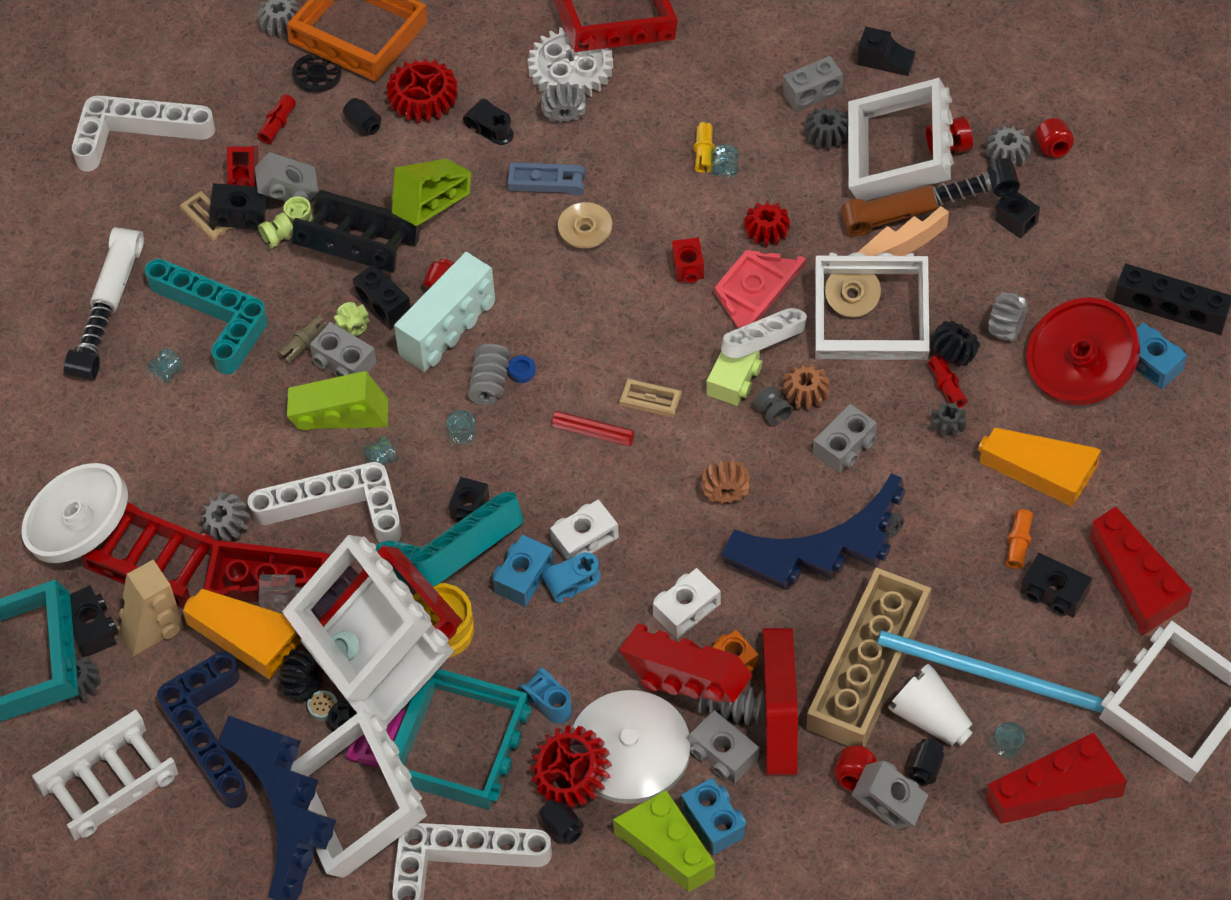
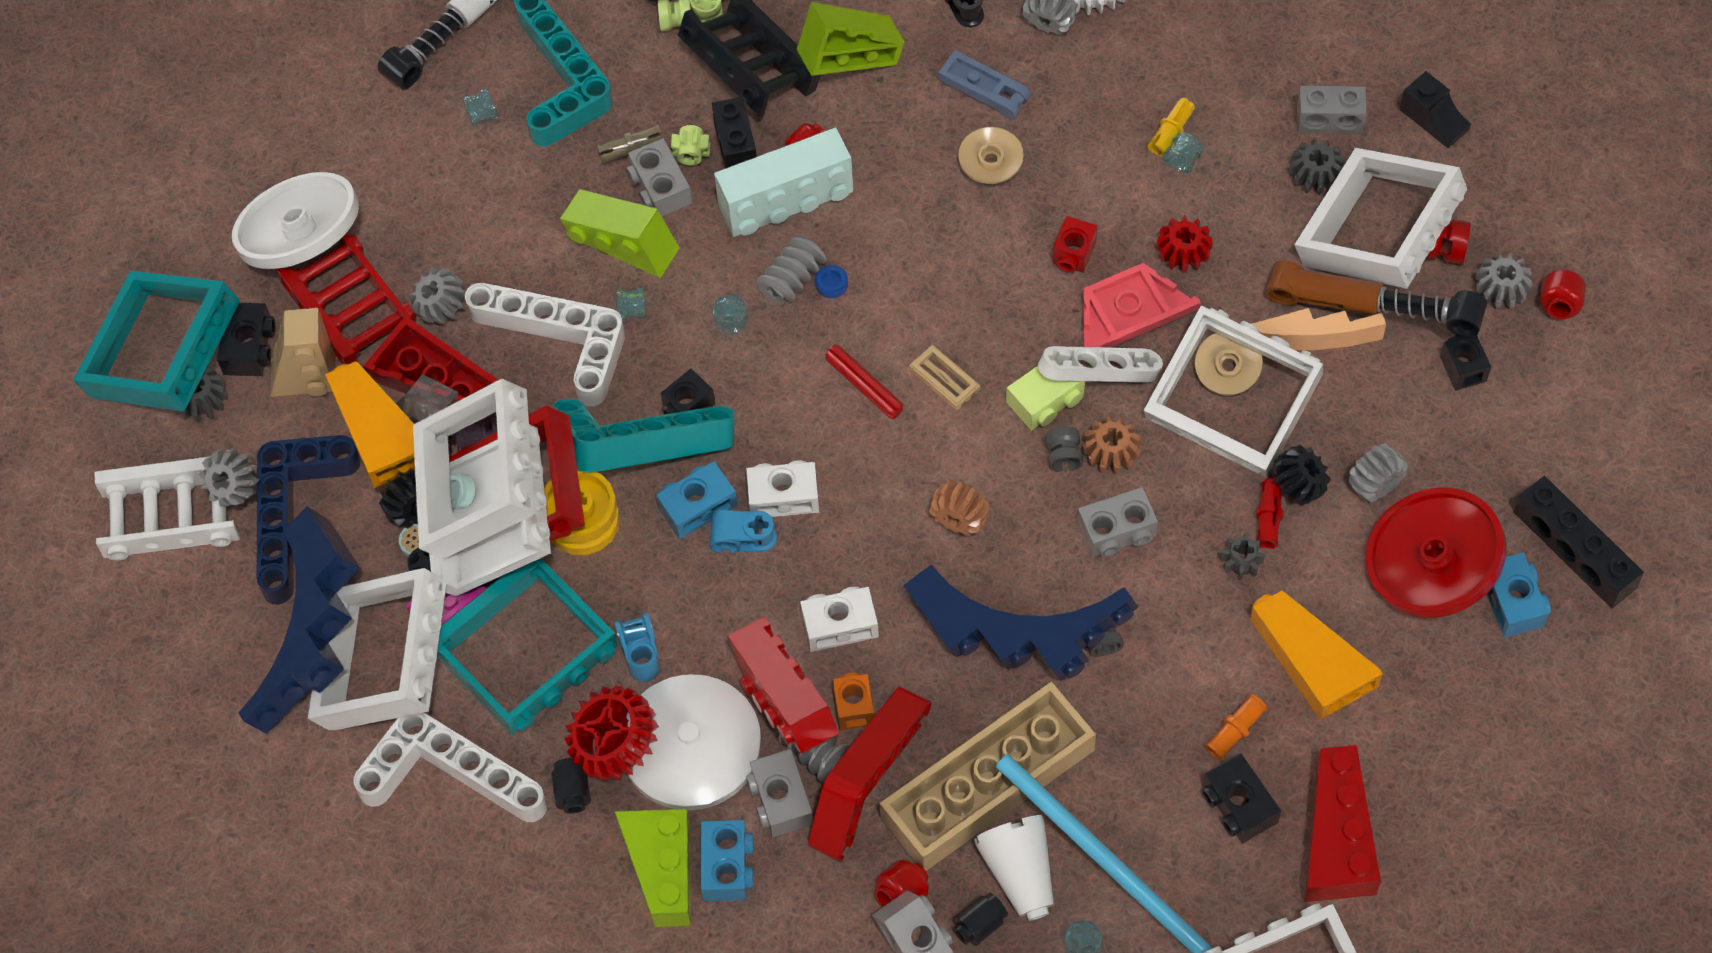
camera: 30 degrees right, 5 degrees up
(137, 725) = (228, 477): none -> light grey gear

